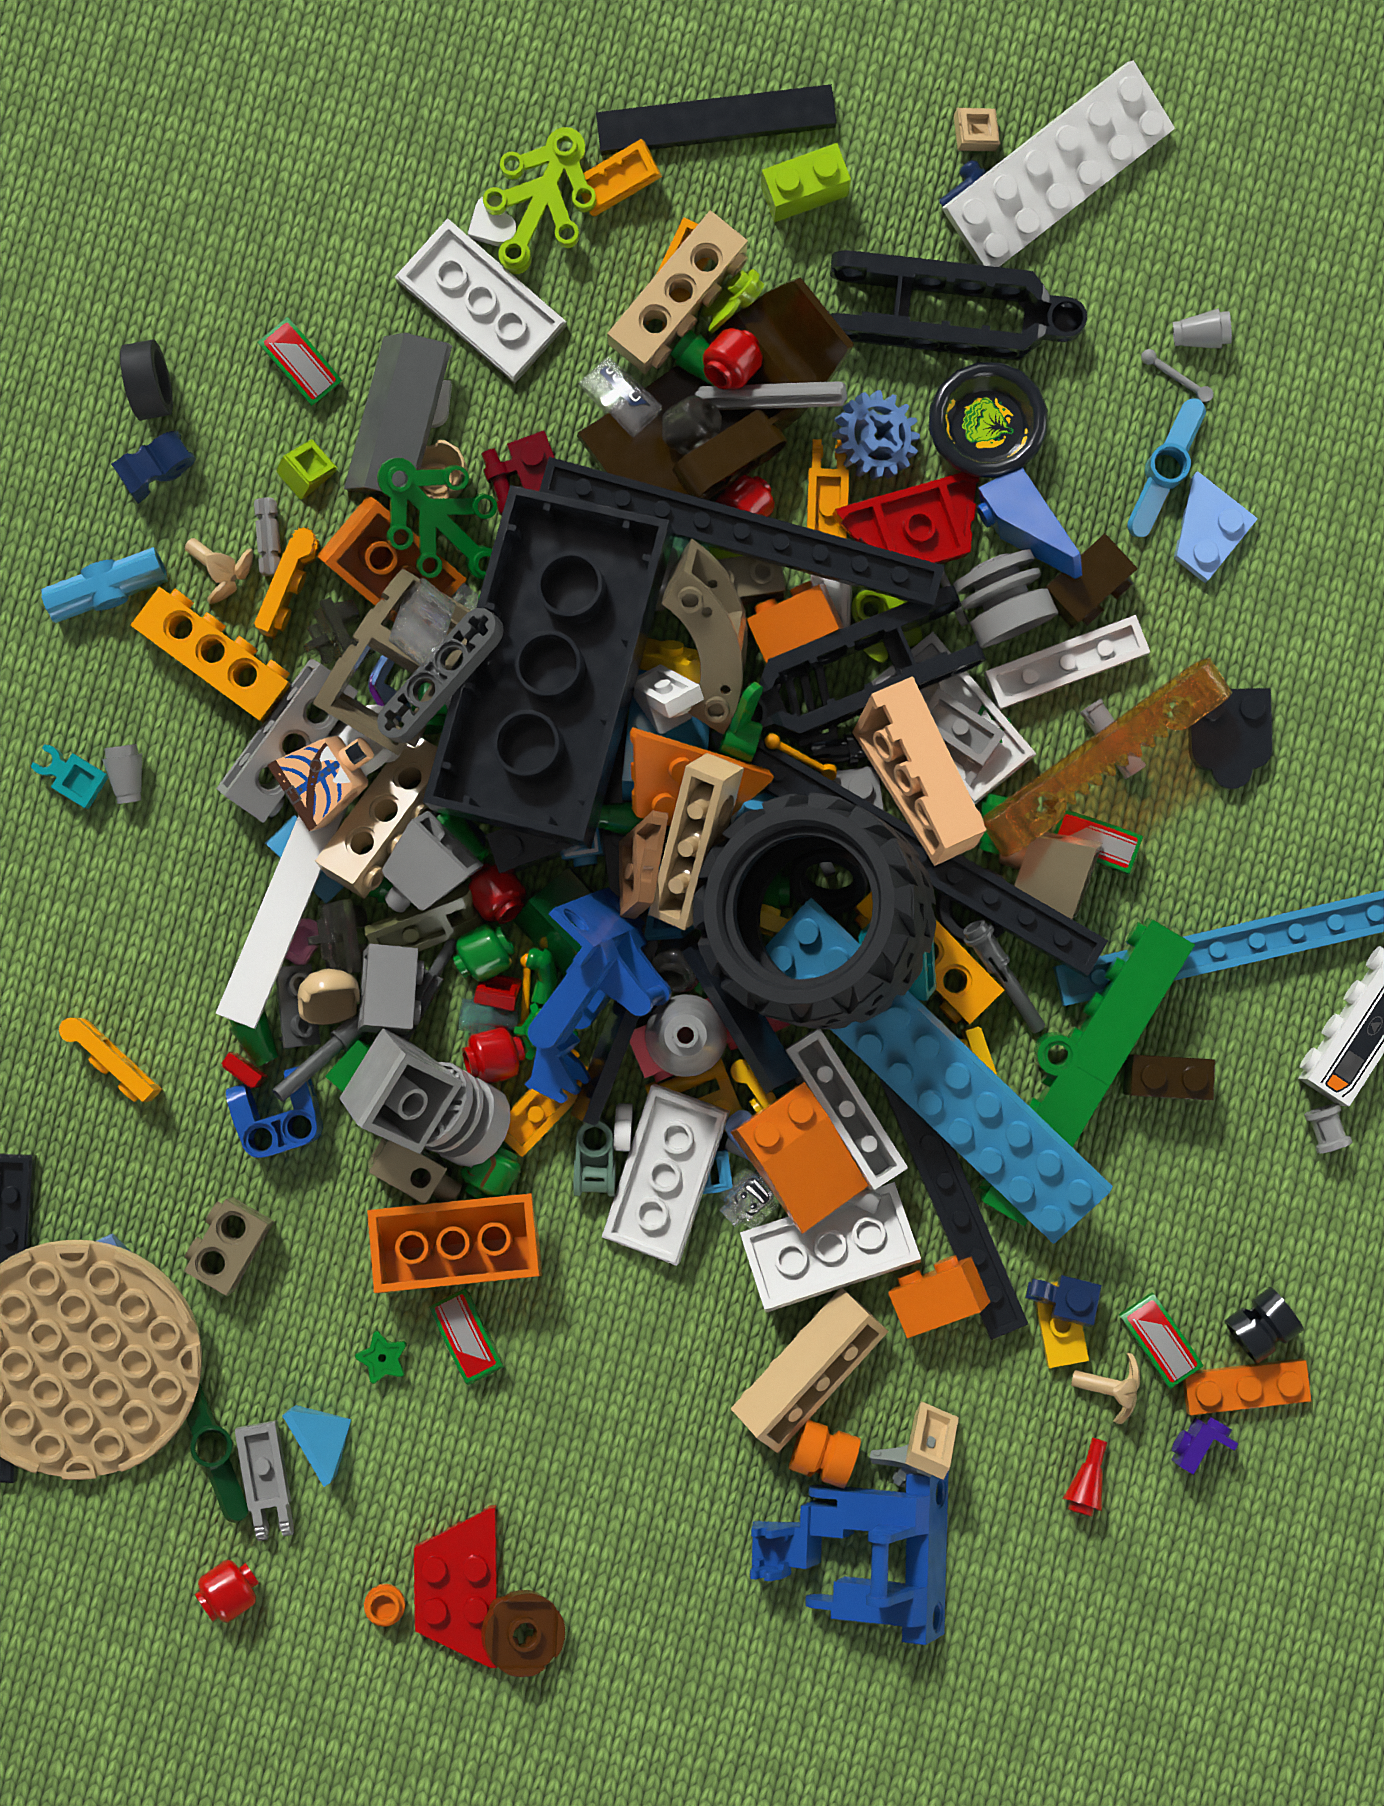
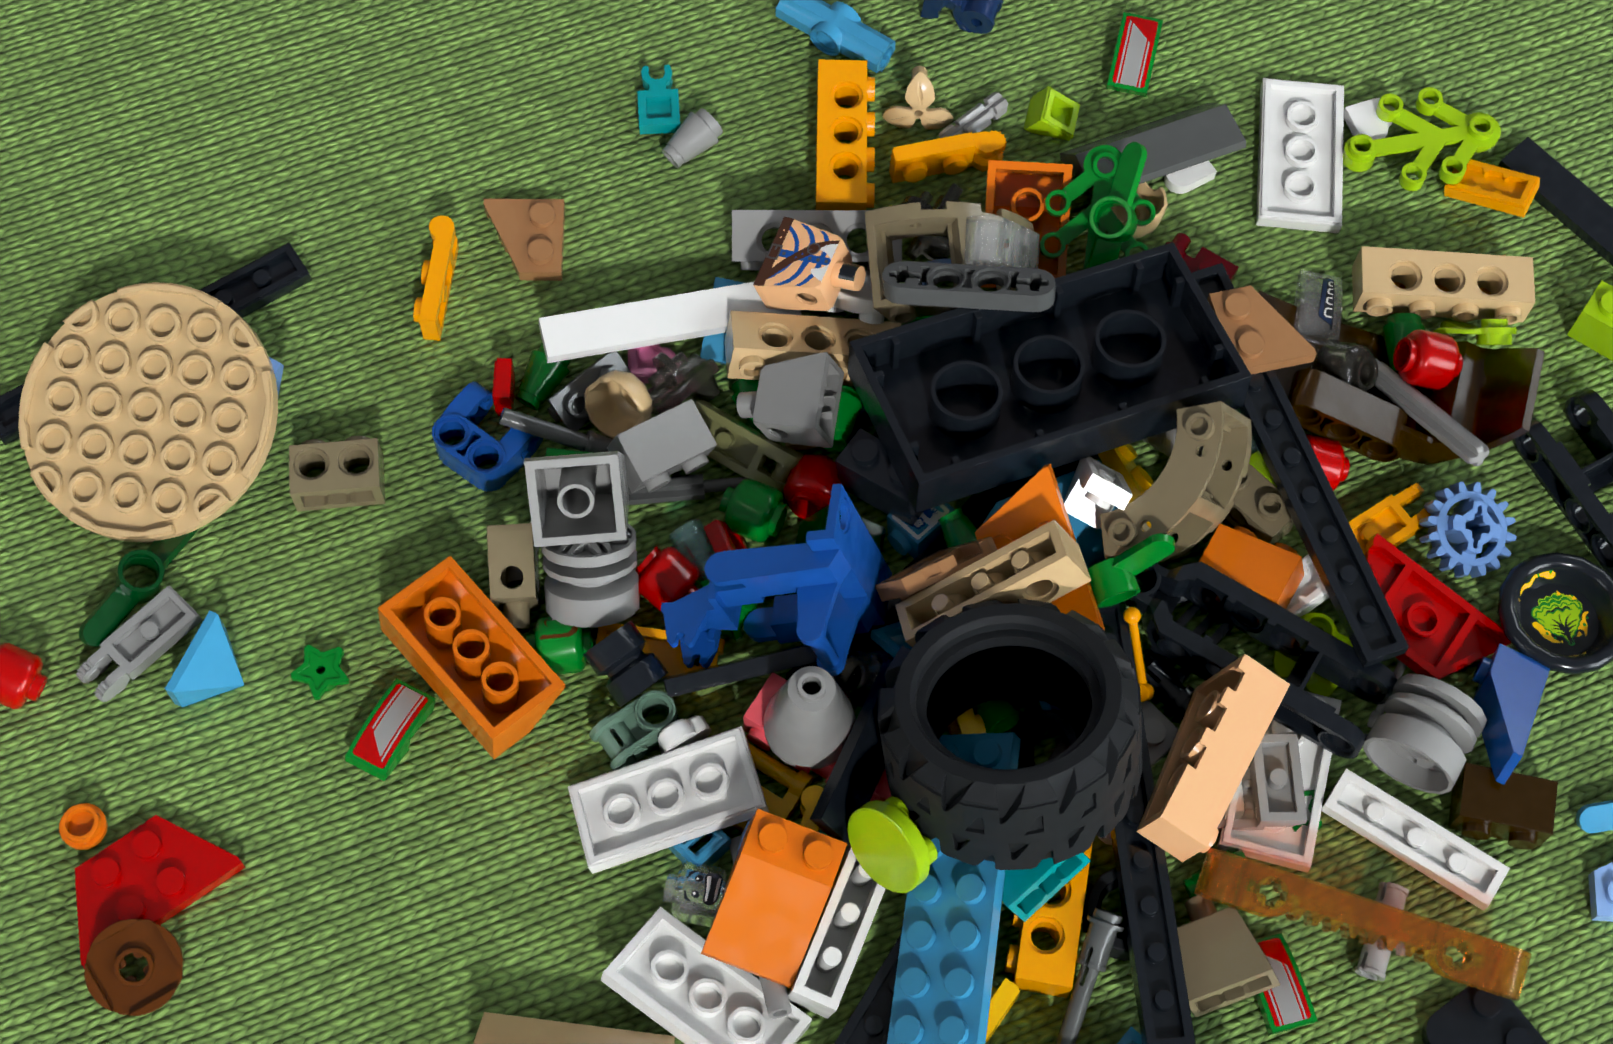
camera: 50 degrees right, 20 degrees down
(120, 957) = (531, 235): none -> medium nougat wing
(435, 487) = (1123, 191): none -> green piece
(543, 1138) = (625, 663): none -> black wheel
(626, 478) = (1259, 331): none -> medium nougat wing
(828, 1053) = (890, 845): none -> lime tile

